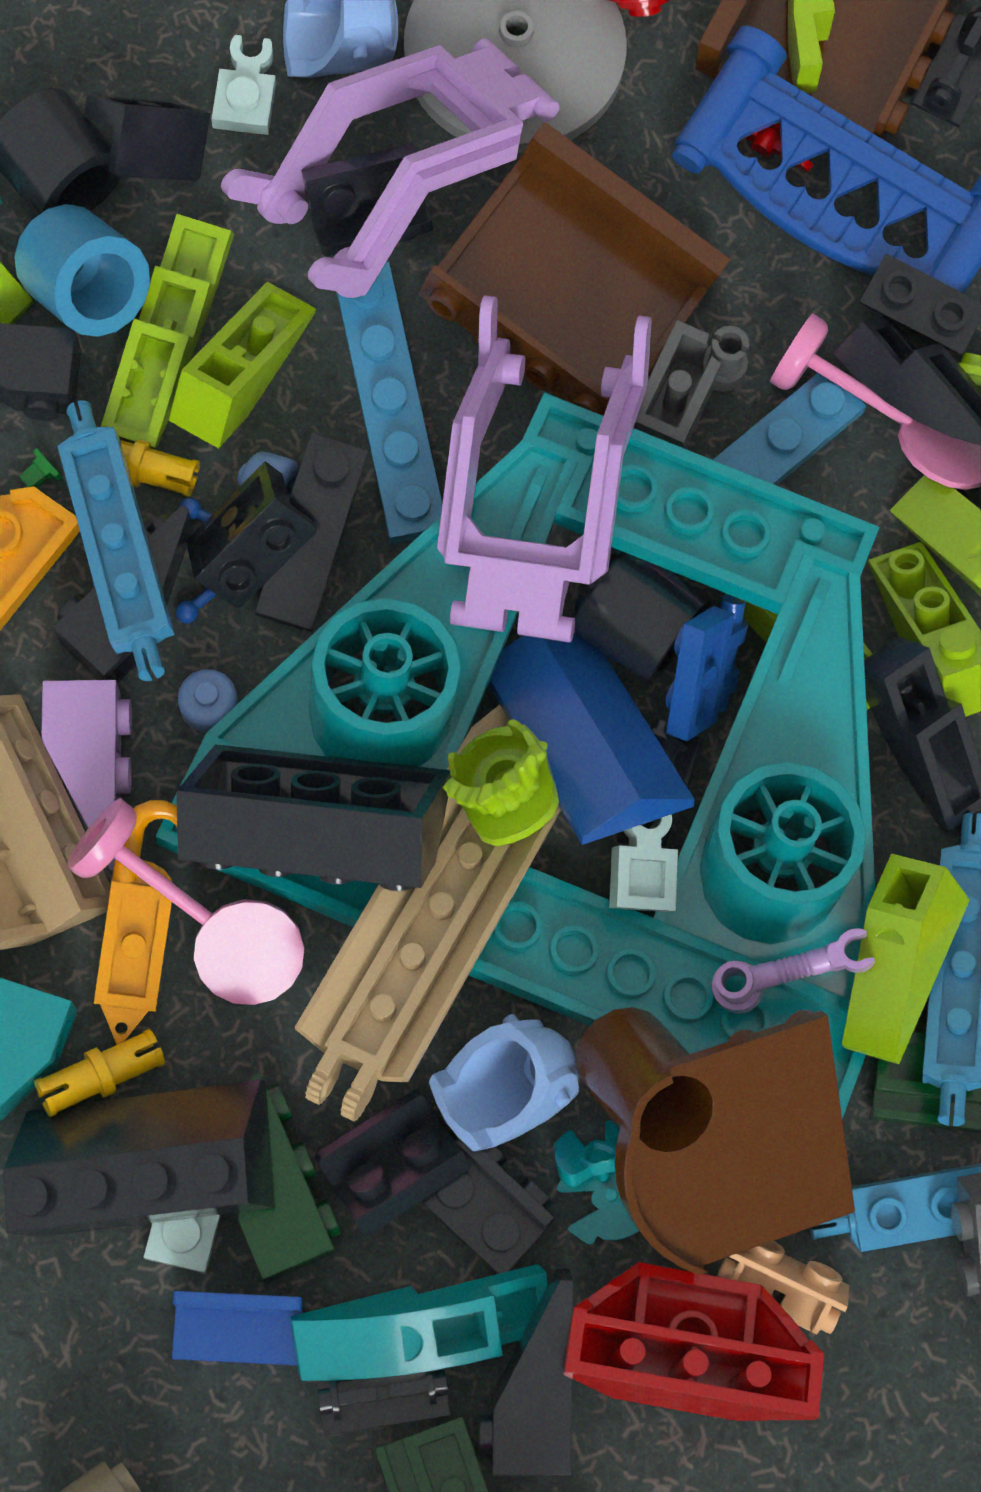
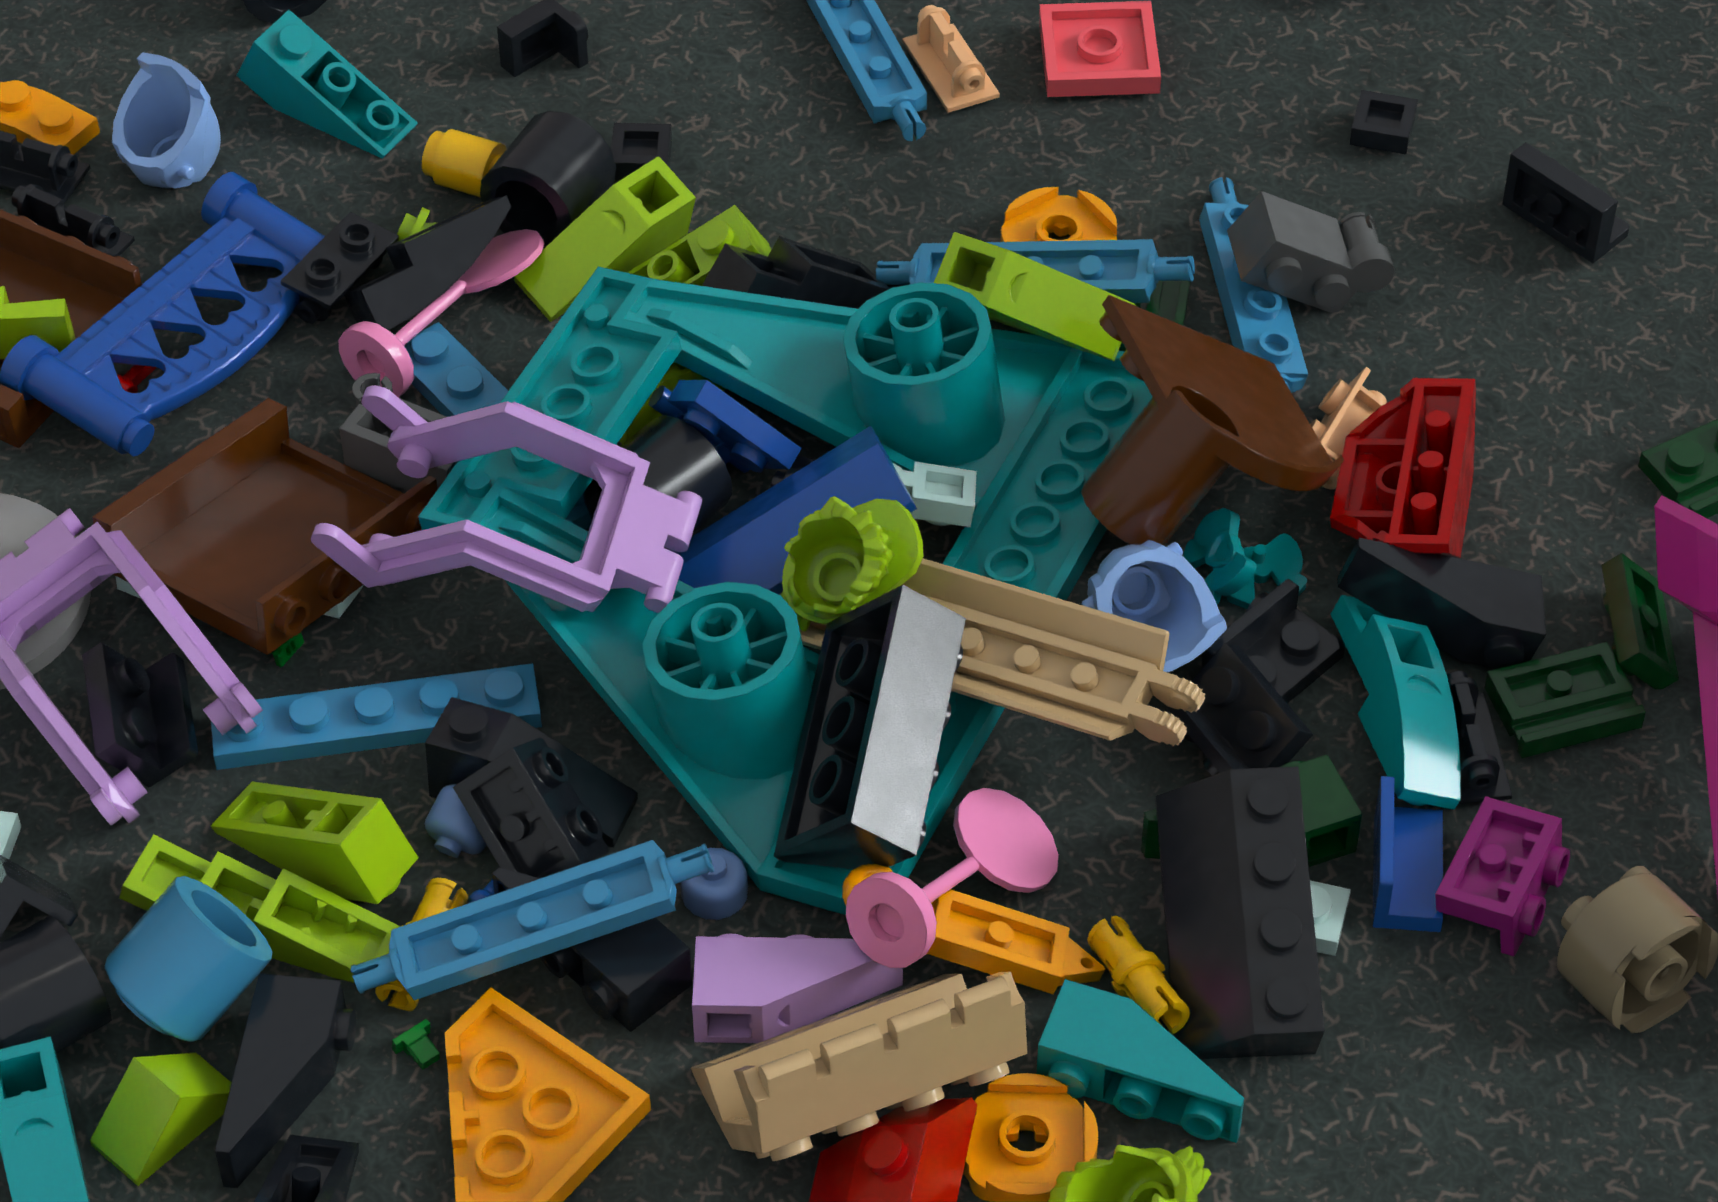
camera: 80 degrees left, 25 degrees down
(216, 1417) = (1505, 871): none -> magenta bracket
(773, 973) = (1055, 422): lavender brick -> none

